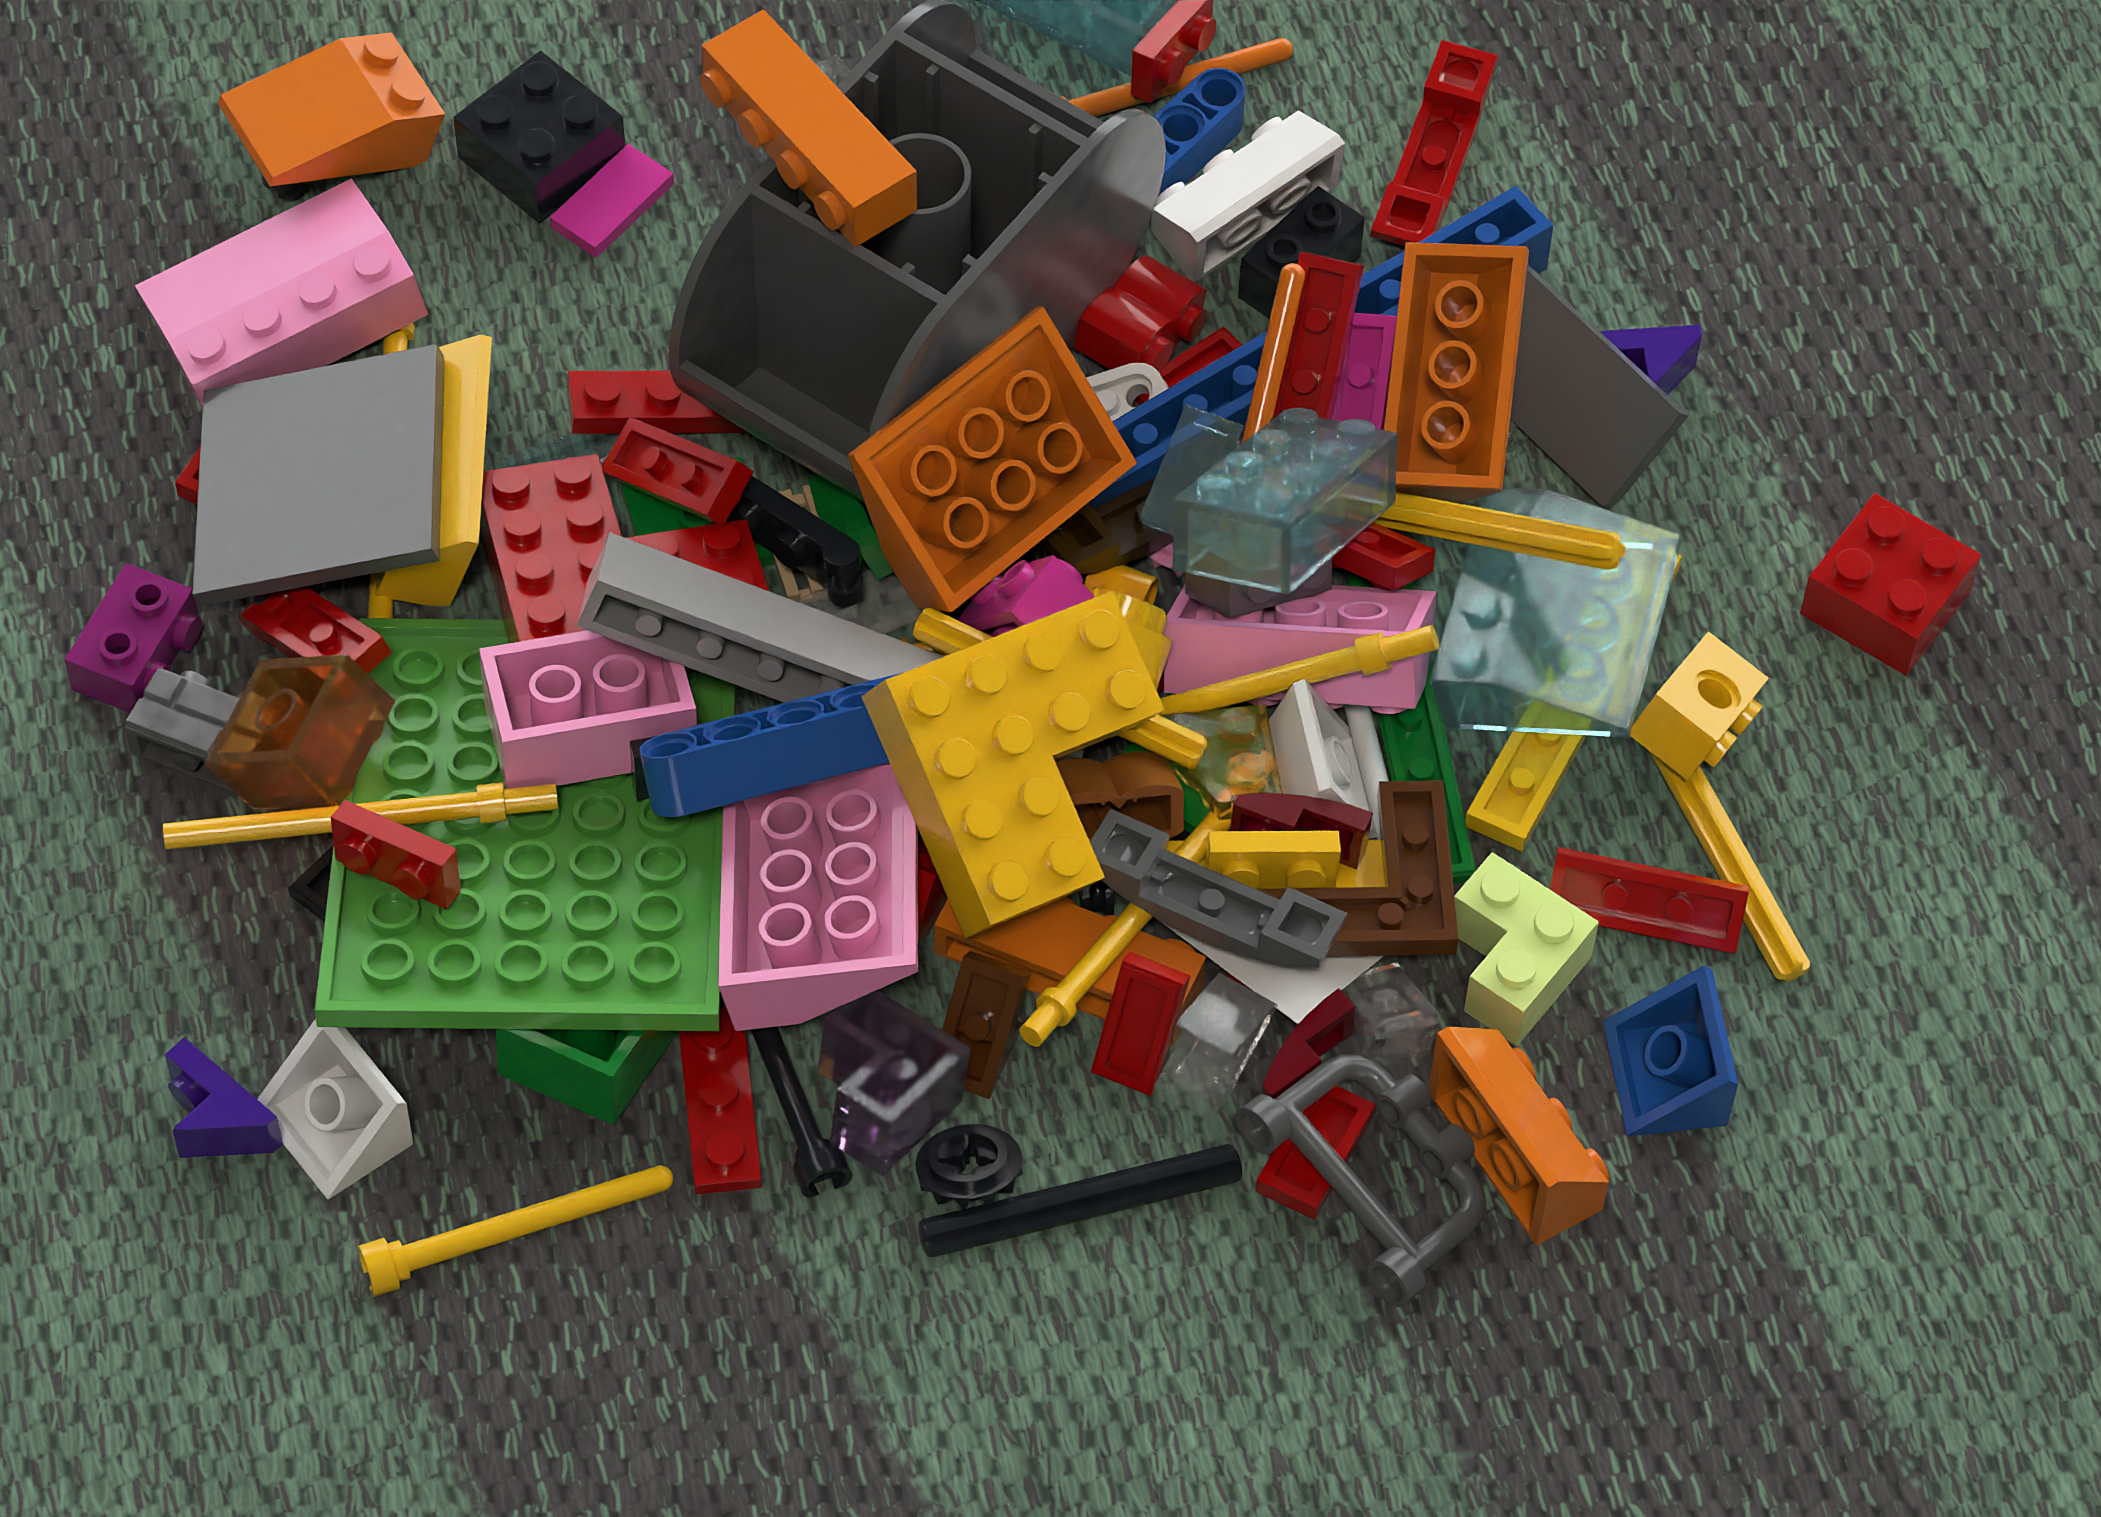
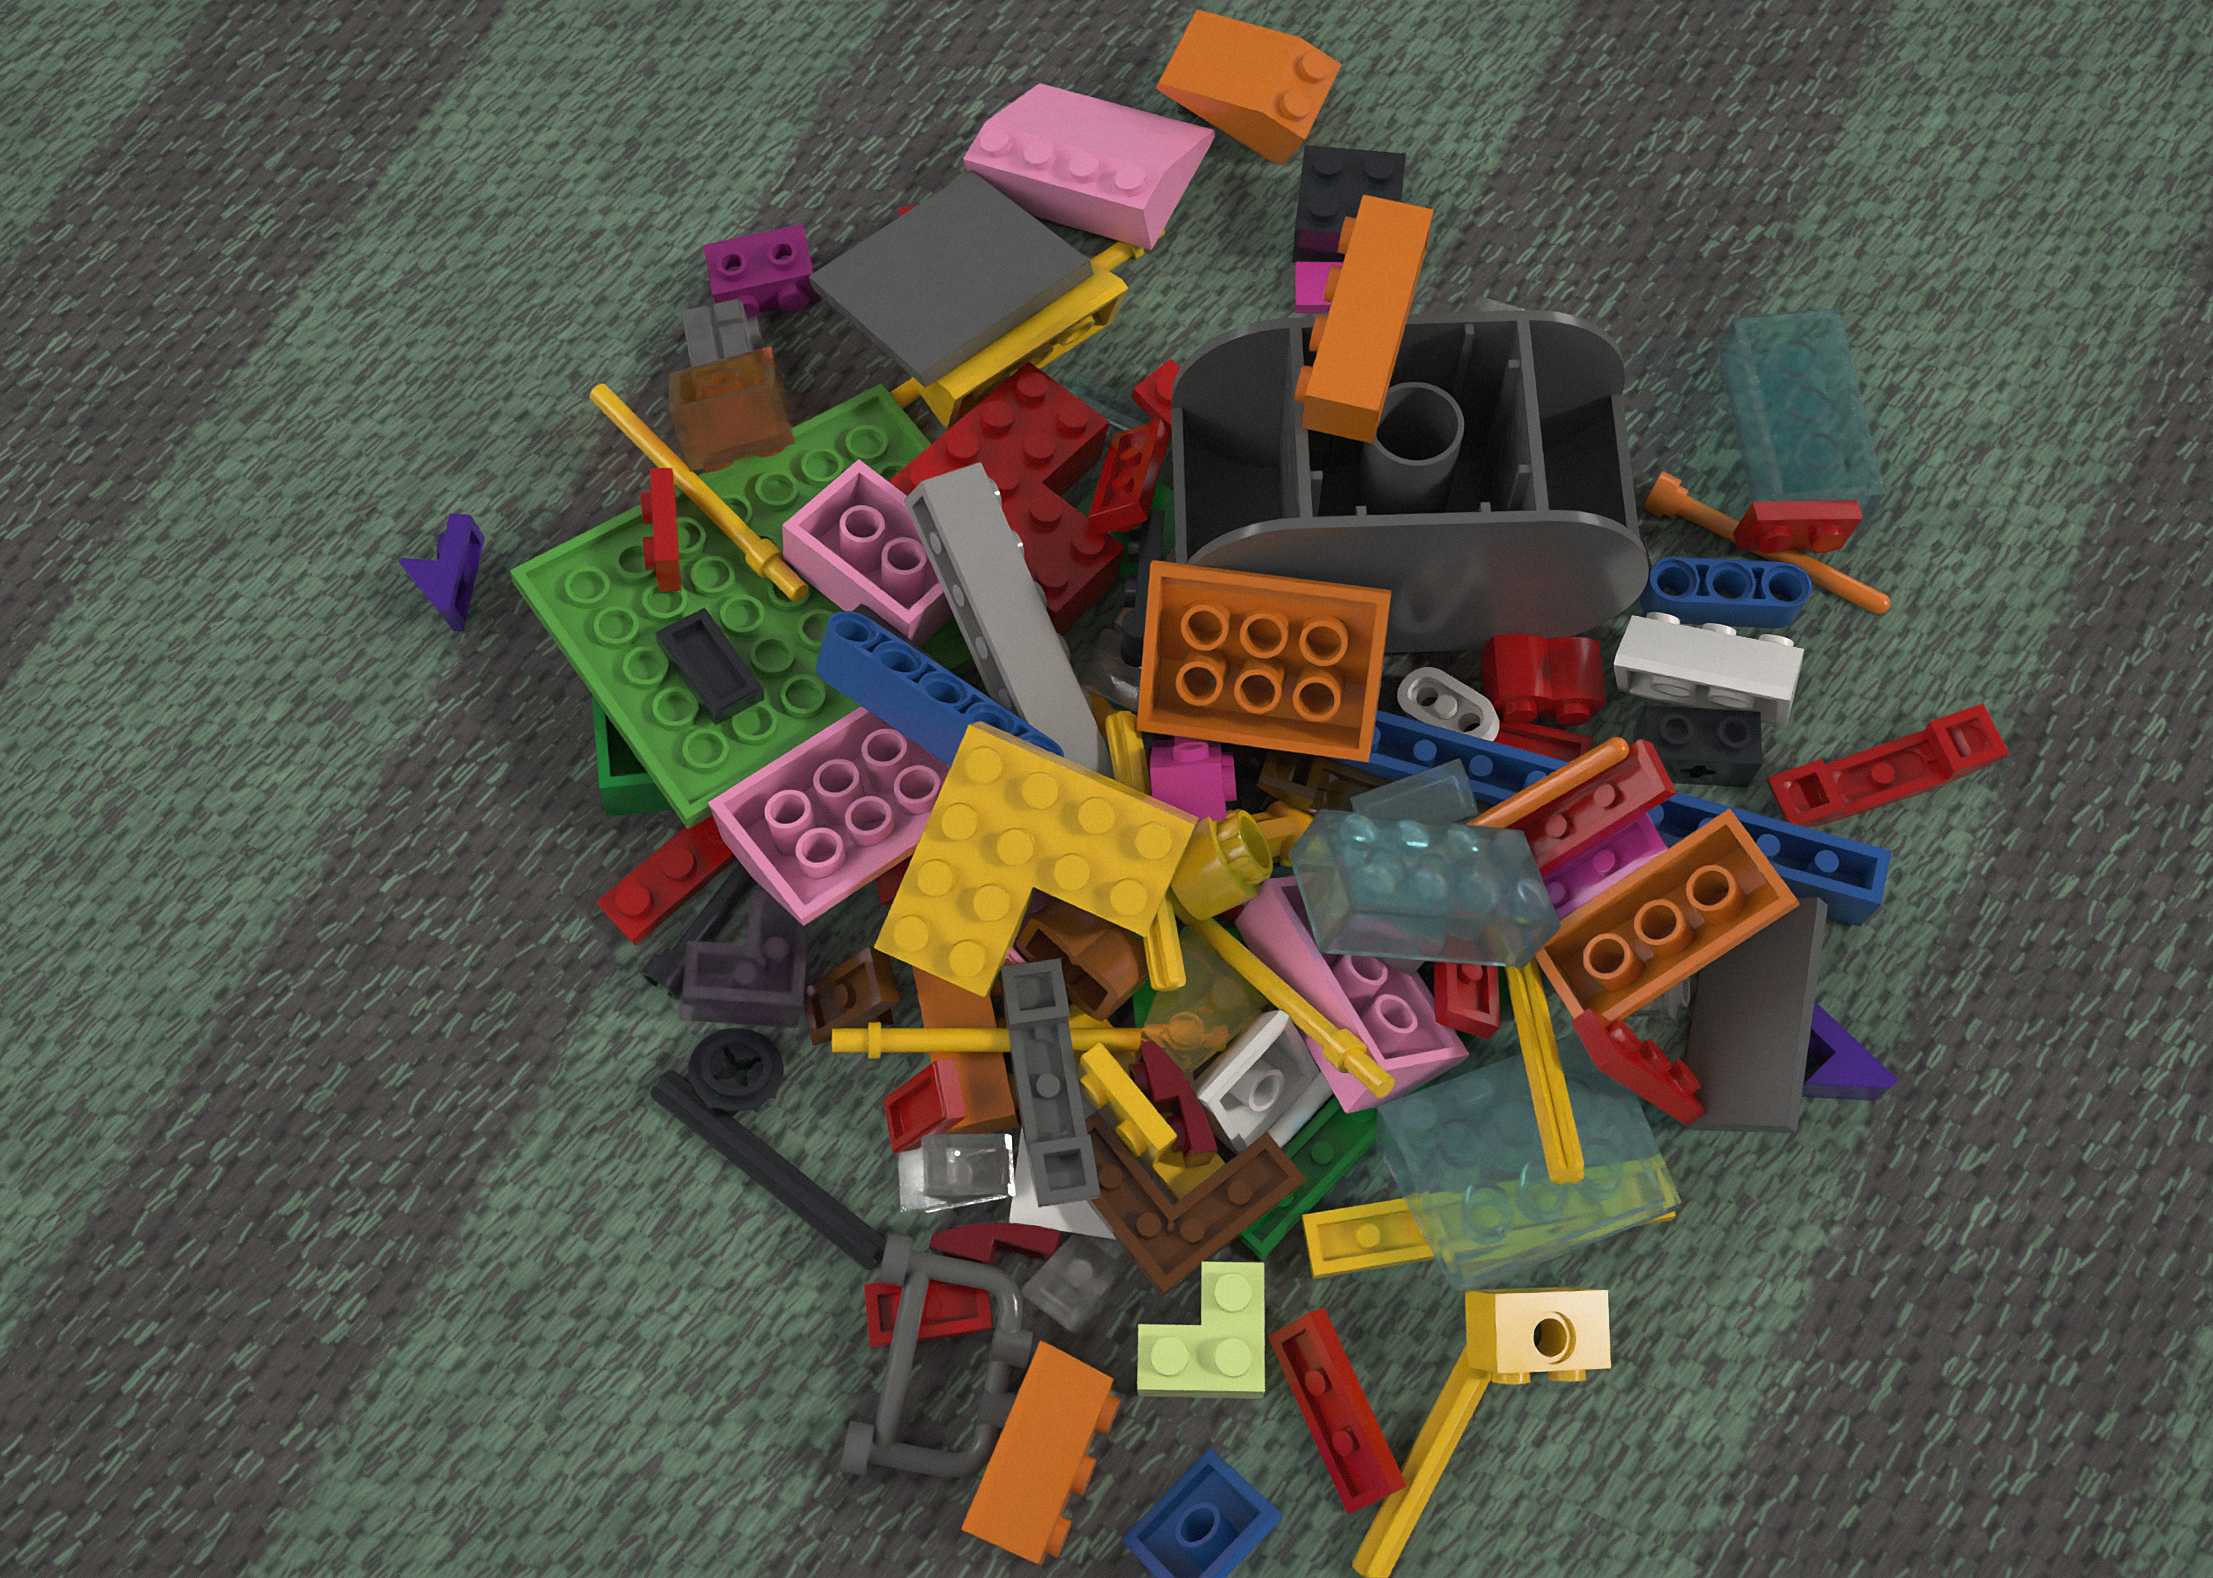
camera: 60 degrees right, 10 degrees up
(310, 626) = (836, 371): red plate -> none
(336, 1109) = (496, 647): white slope -> none
(392, 1262) = (405, 756): yellow piece -> none
(572, 908) = (710, 666): none -> black tile
(1554, 470) = (1640, 1066): none -> red plate
(1890, 584) = (1793, 1404): red brick -> none

